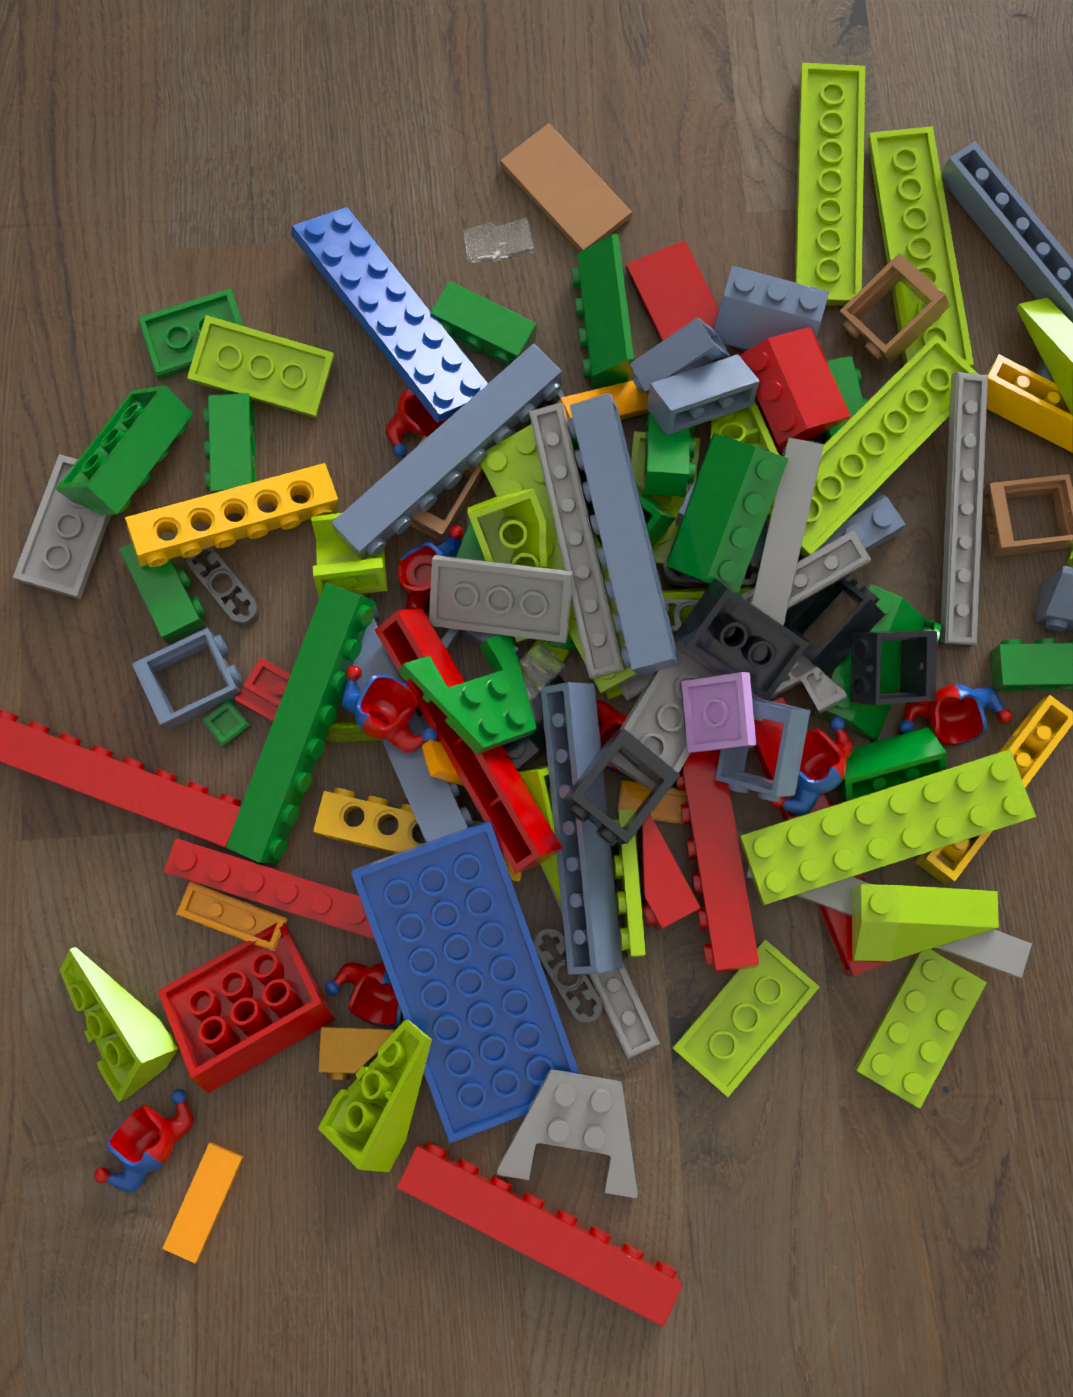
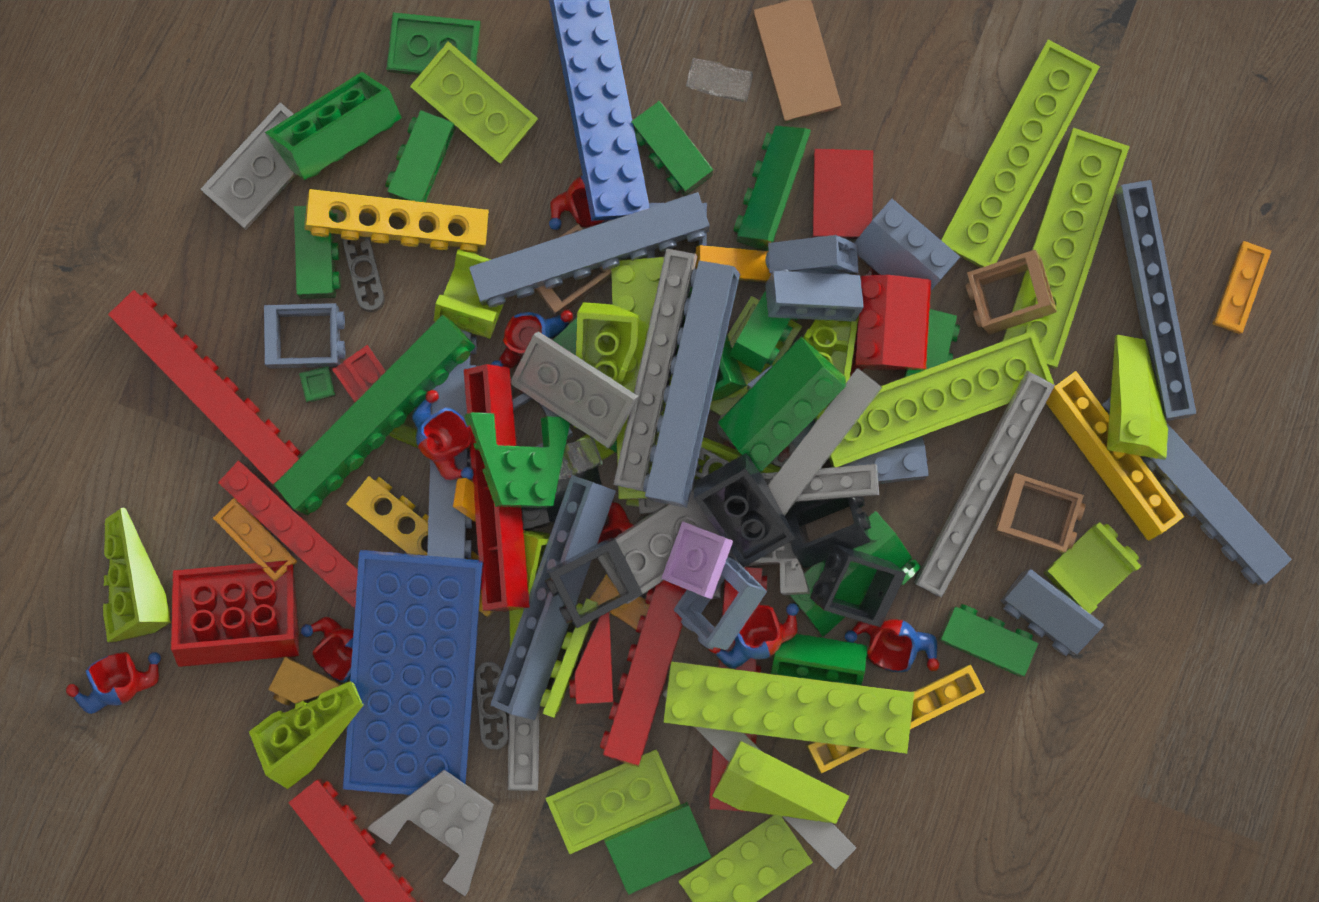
camera: 20 degrees right, 5 degrees up
(203, 1202) = (138, 746): light orange tile -> none
(817, 1045) = (657, 848): none -> green tile

